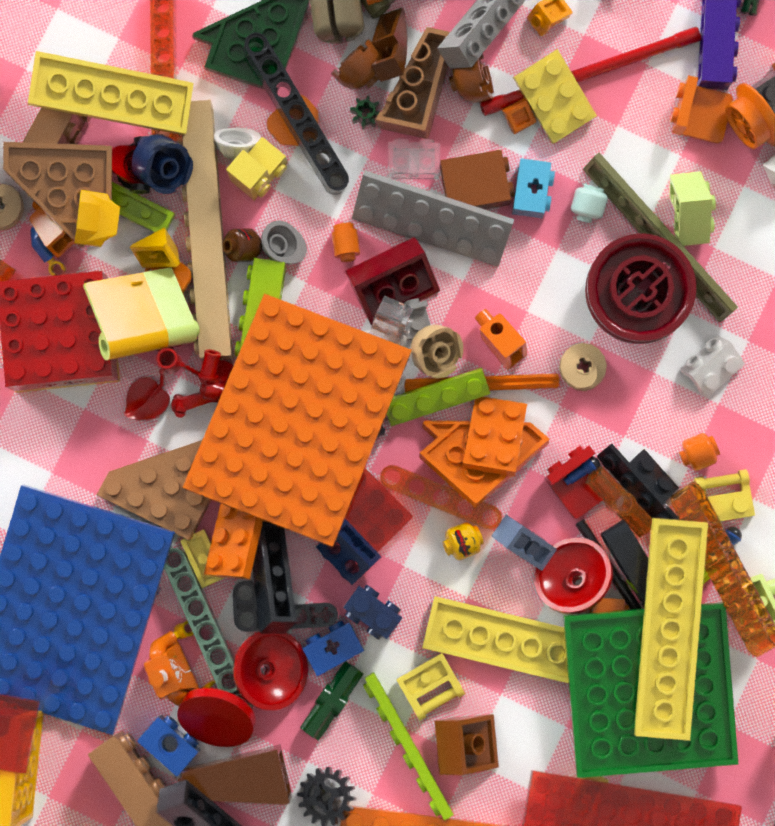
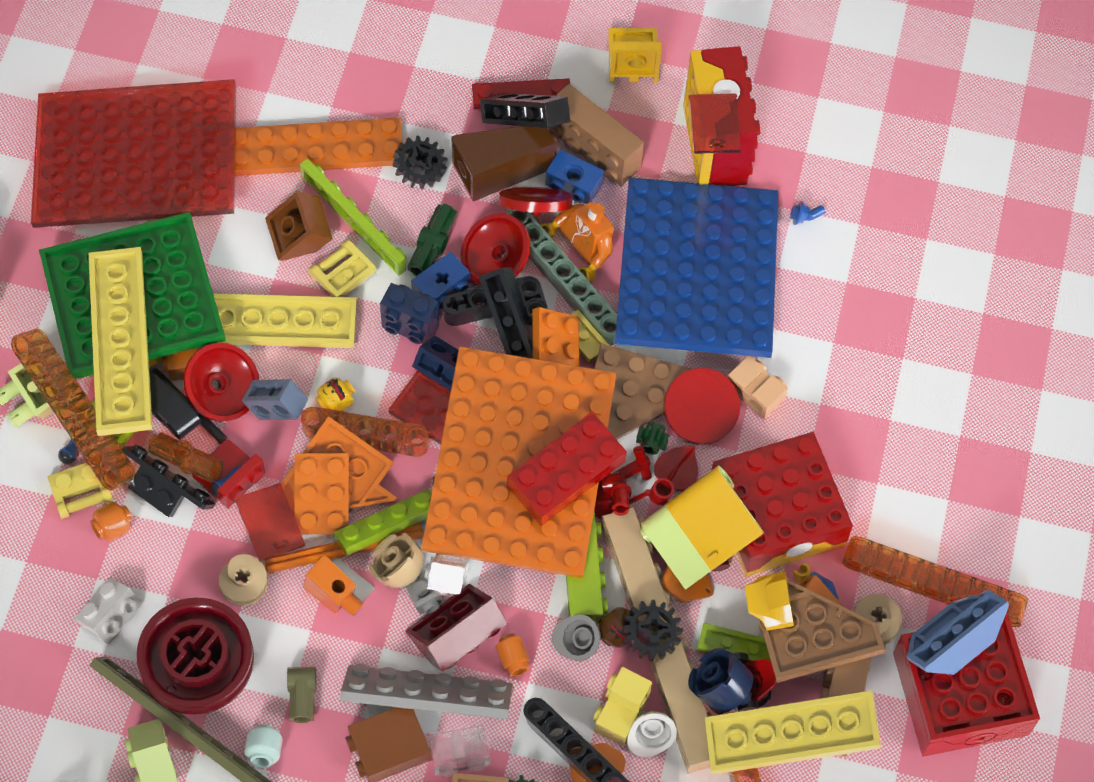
camera: 165 degrees right, 20 degrees down
(45, 465) = (756, 387): none -> light nougat brick
(106, 455) = (701, 406): none -> red piece
(156, 250) = (702, 606): yellow slope -> none
(162, 431) = (652, 438): none -> dark green gear
(206, 215) = (641, 630): none -> black gear
(256, 388) = (566, 468): none -> red brick
(482, 354) = (363, 588): none -> white sticker
(525, 201) = (332, 764): medium azure brick -> none
(545, 252) = (301, 686): none -> olive piece
(549, 415) = (269, 522): none -> clear red container

